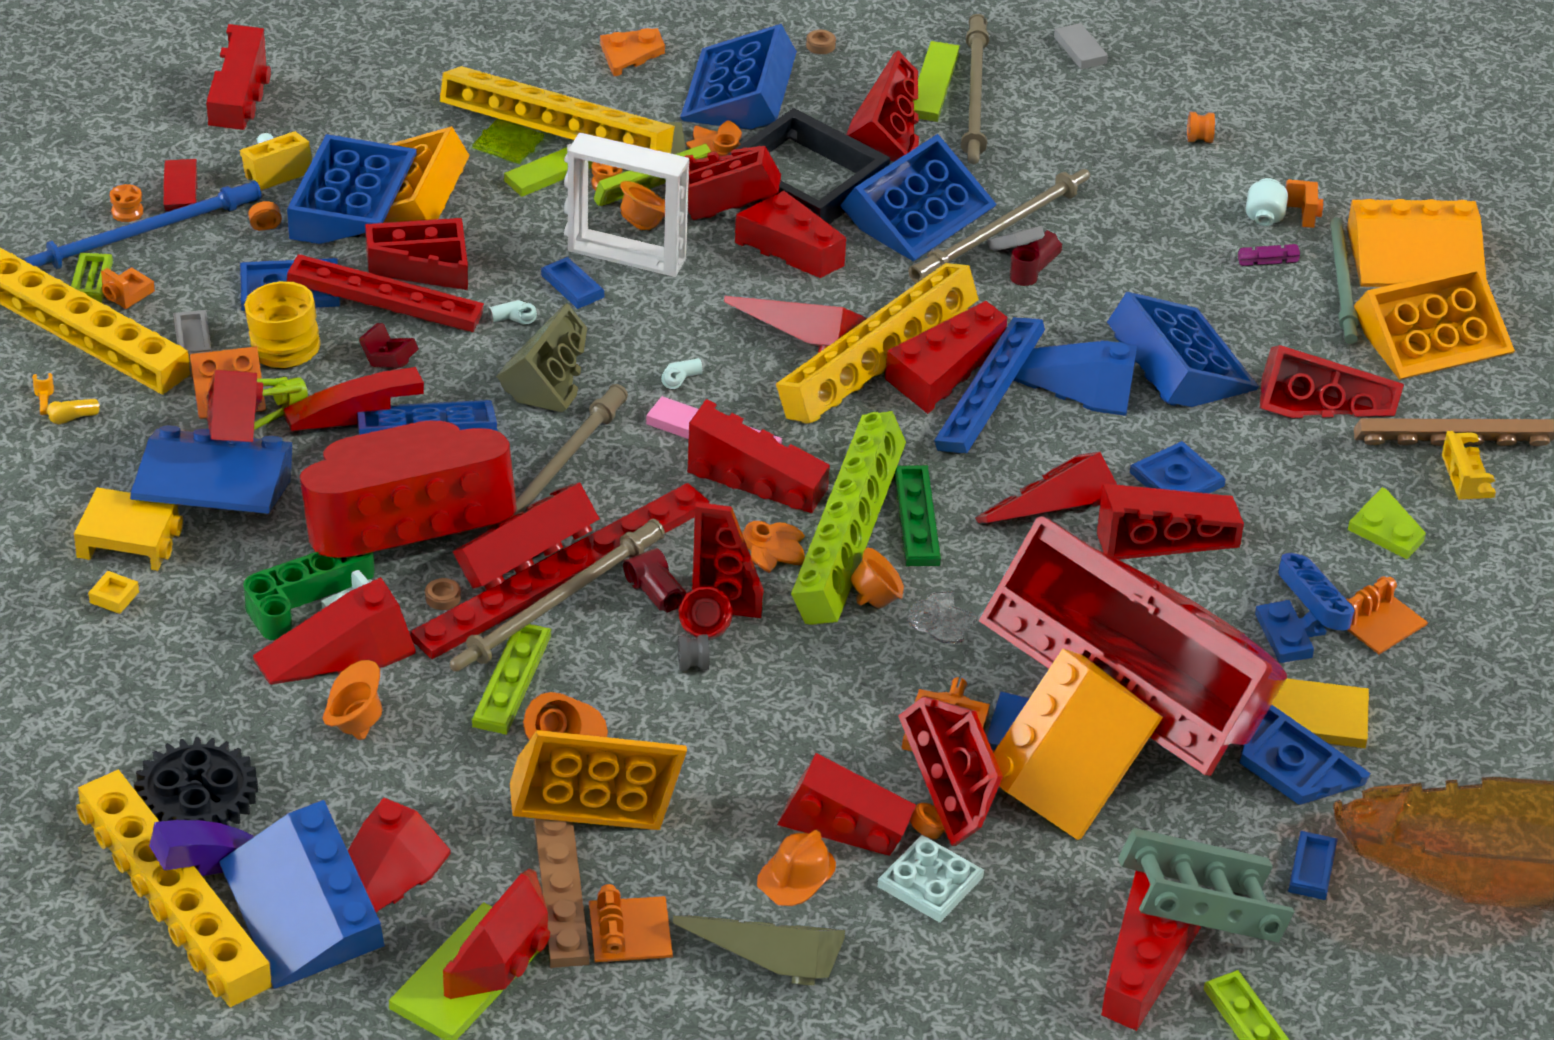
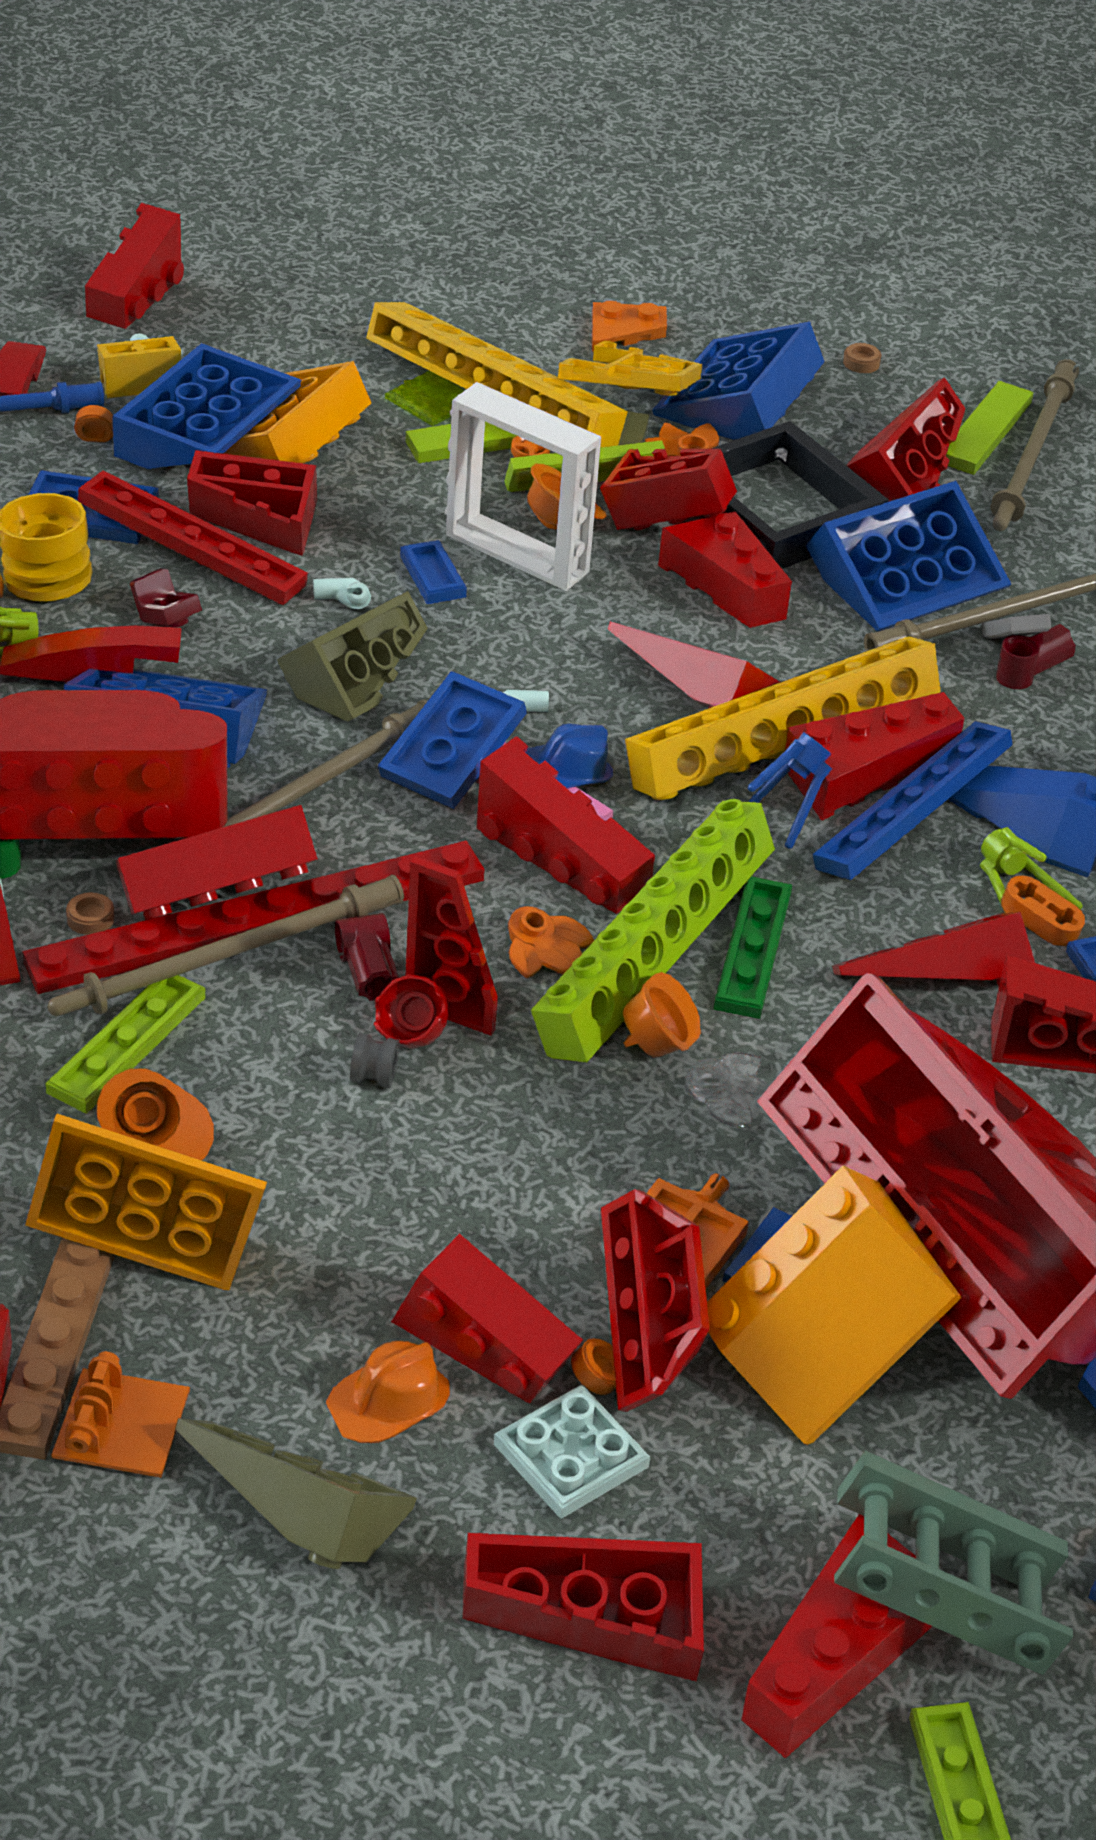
camera: 15 degrees right, 0 degrees up
(649, 410) = (450, 737): none -> blue plate
(660, 89) = (632, 369): none -> yellow wing
(742, 399) = (577, 754): none -> blue piece
(908, 371) = (803, 757): none -> blue plant
(985, 961) = (592, 1595): none -> red wedge
(1066, 410) = (1008, 855): none -> lime plant
(1108, 443) = (1043, 910): none -> orange beam

